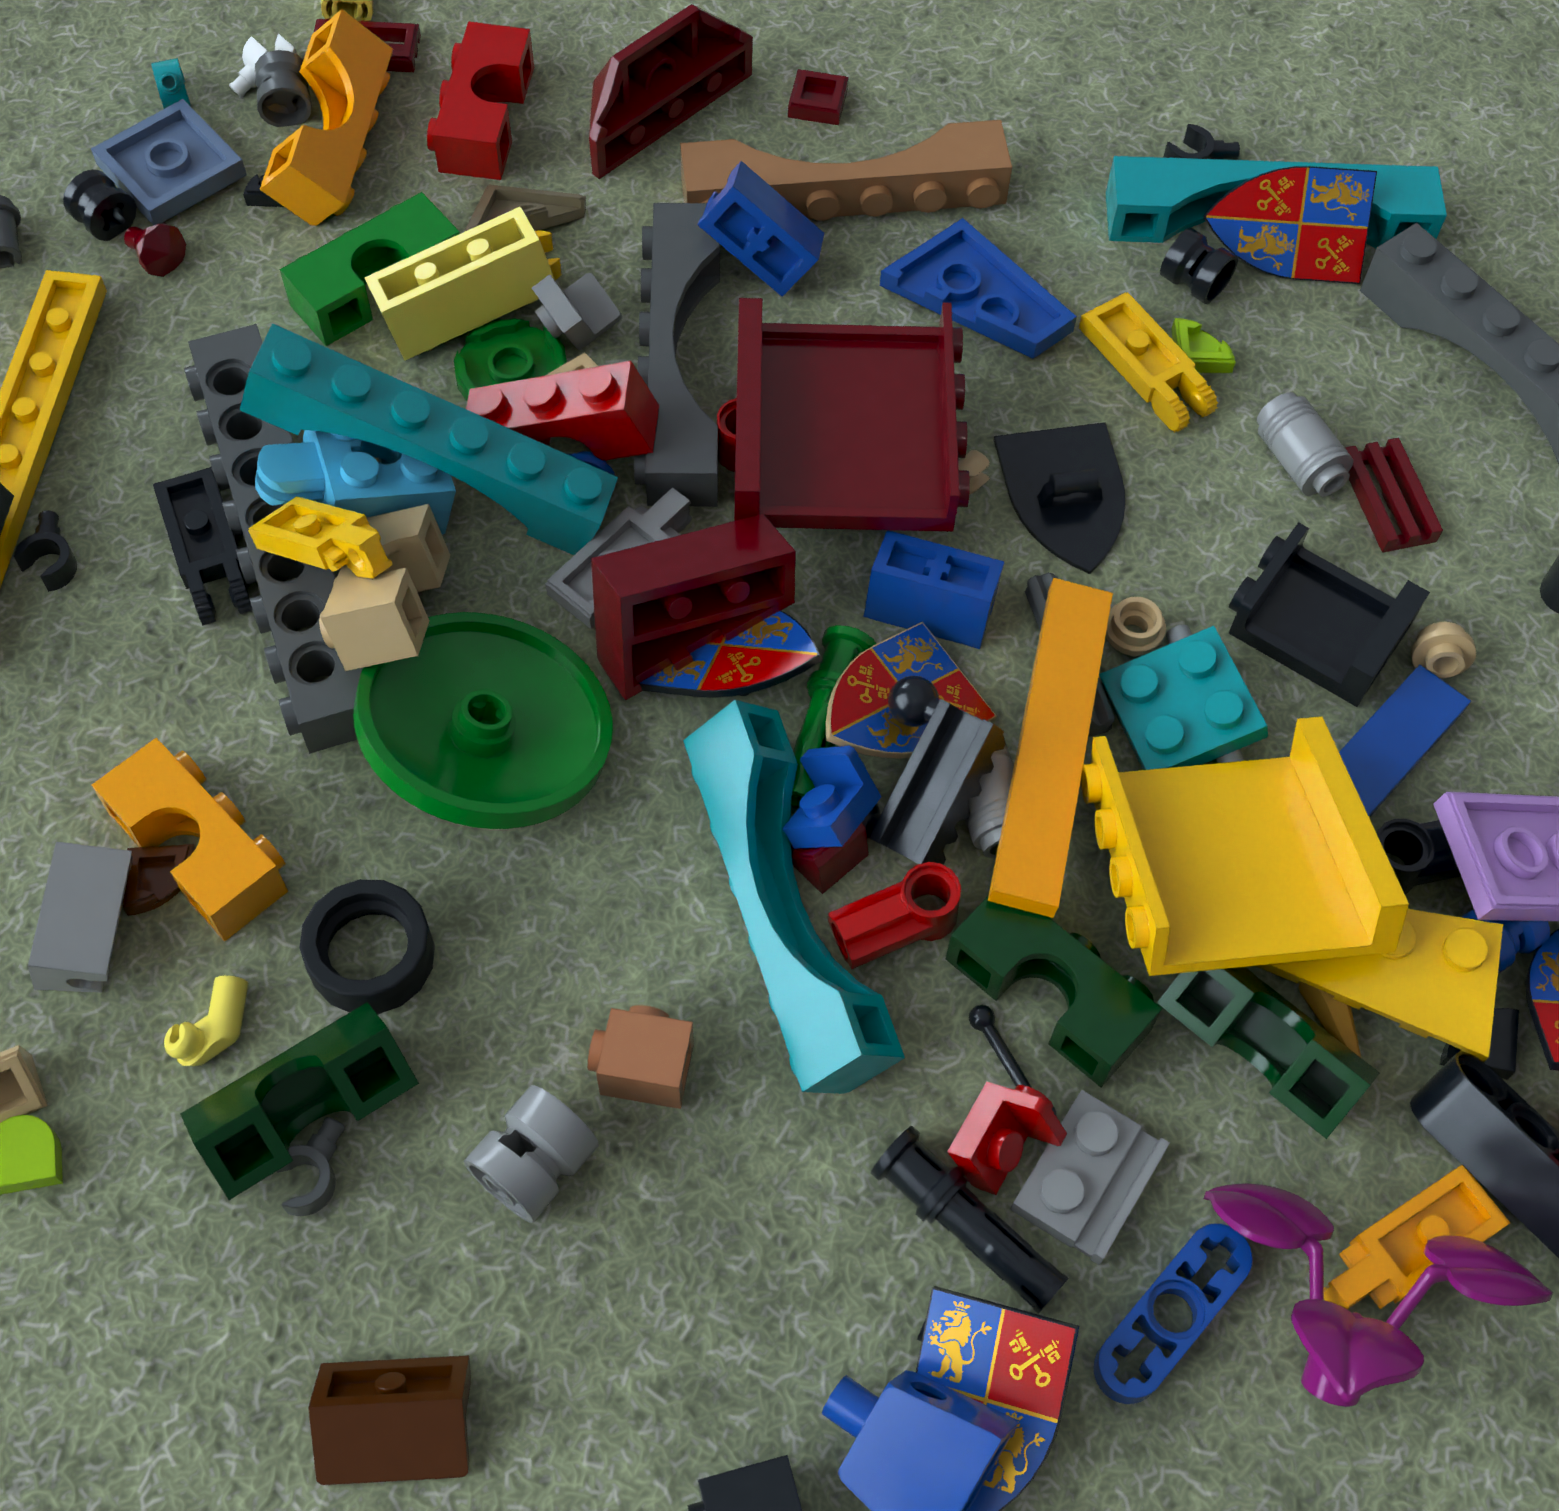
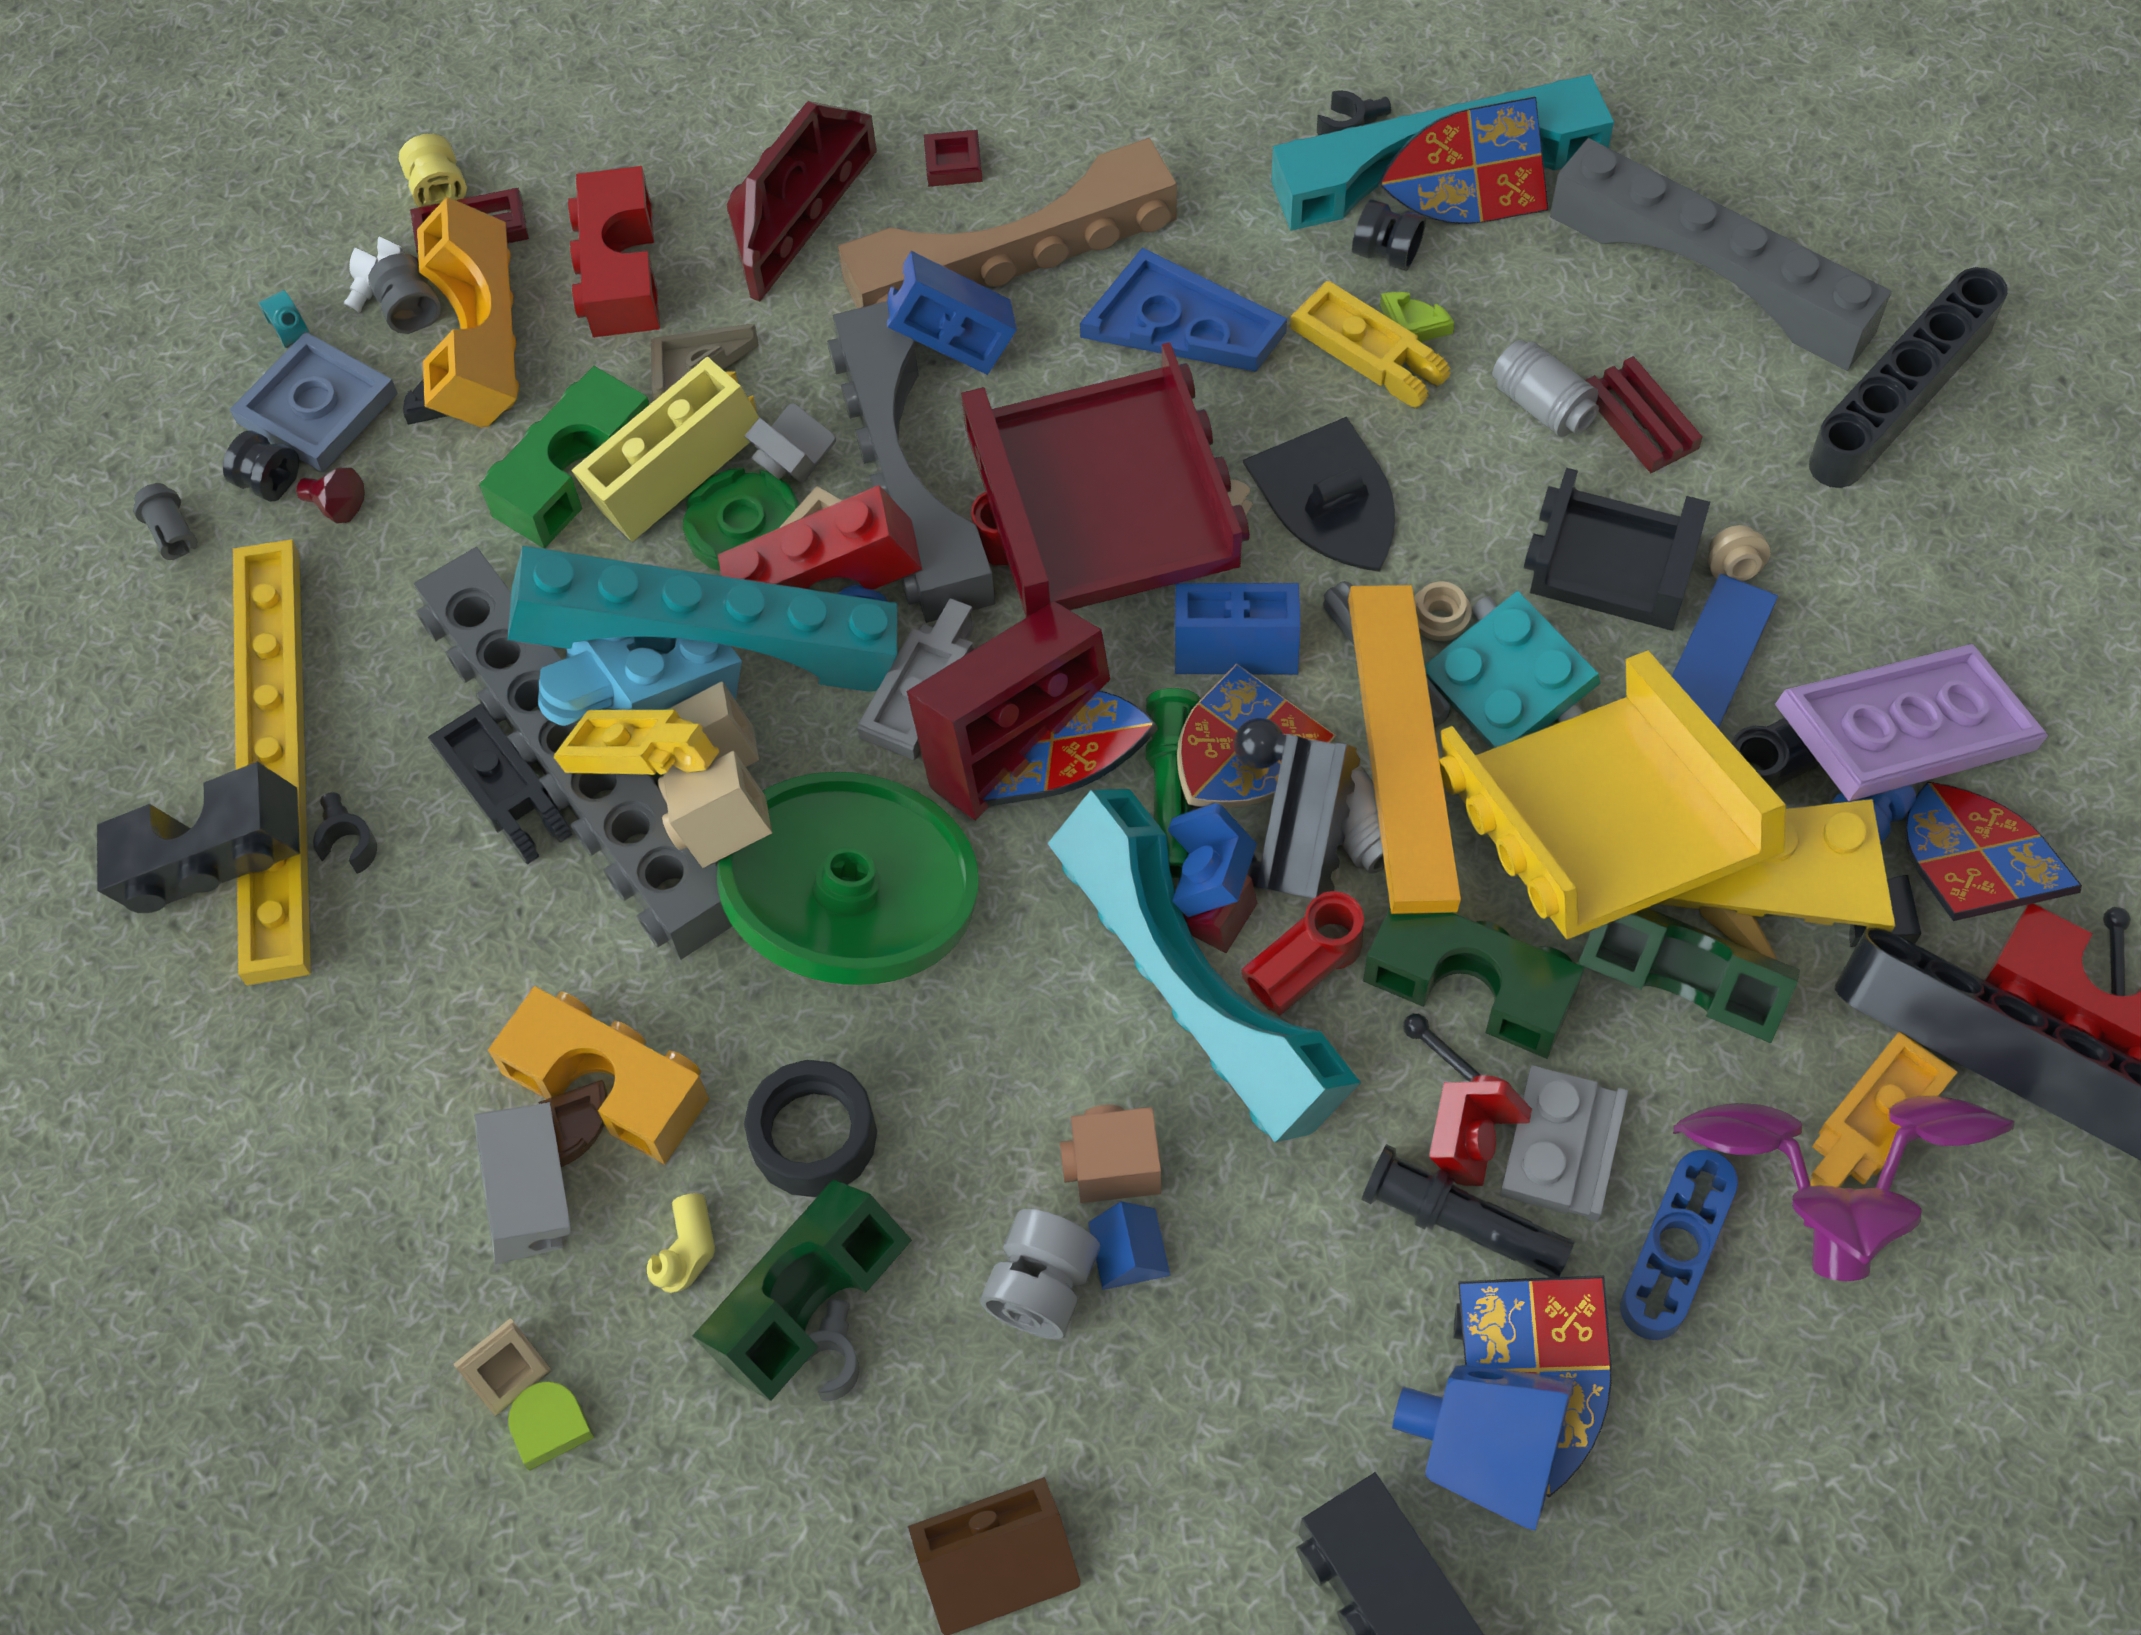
camera: 10 degrees left, 0 degrees up
(630, 1150) = (1129, 1245): none -> blue slope

